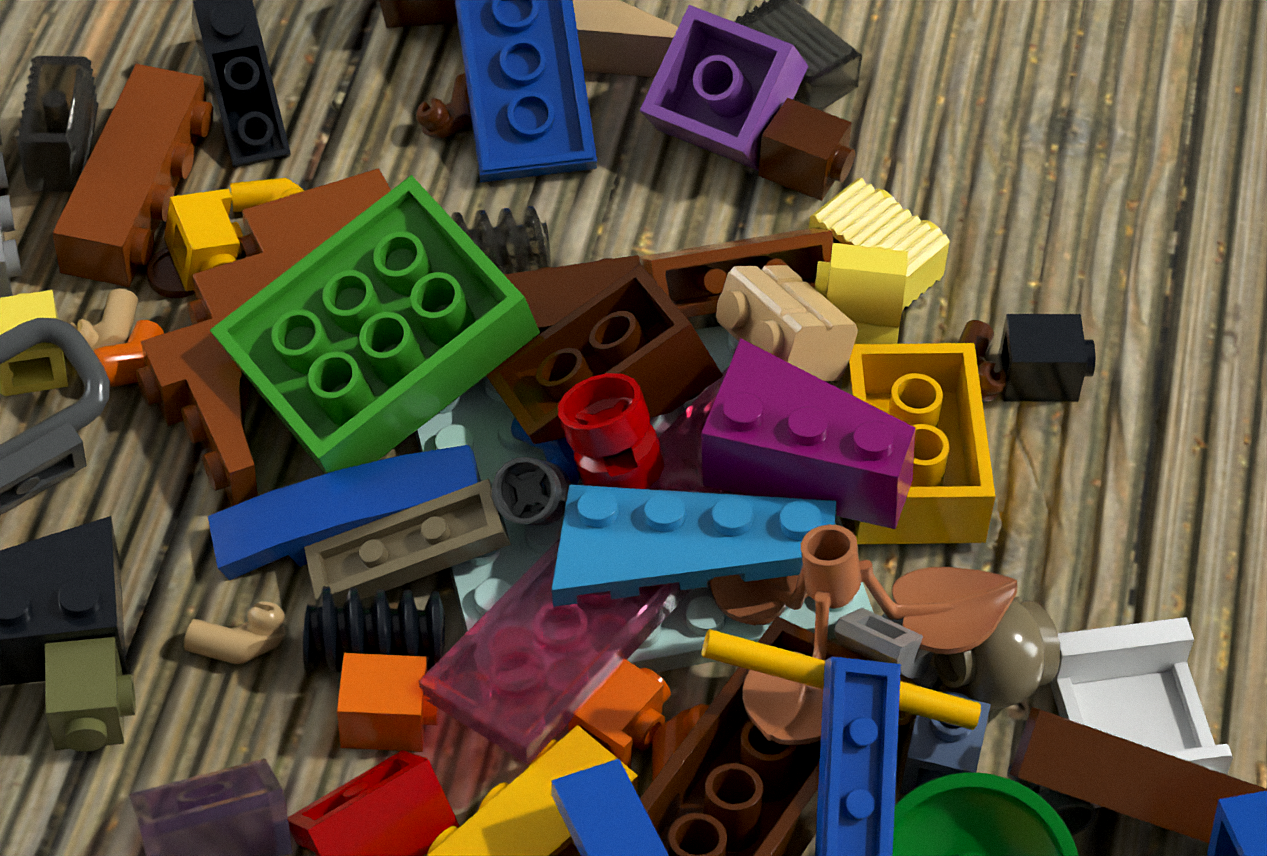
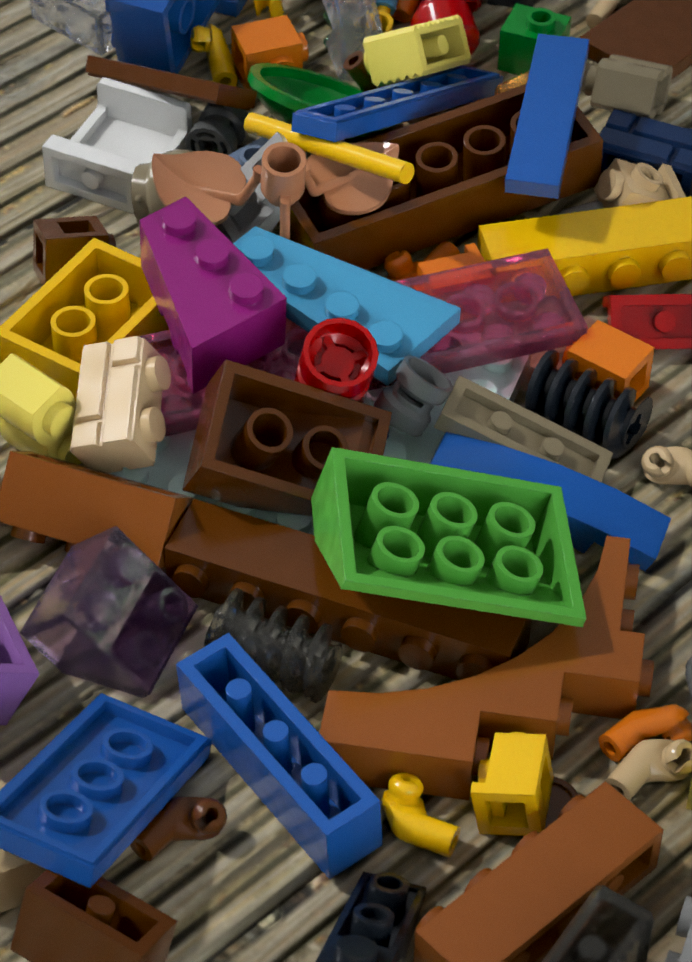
camera: 145 degrees left, 5 degrees down
(462, 167) = (280, 755): none -> blue brick
(644, 201) = (110, 615): none -> clear purple slope
(1053, 530) = (61, 239): none -> reddish brown brick

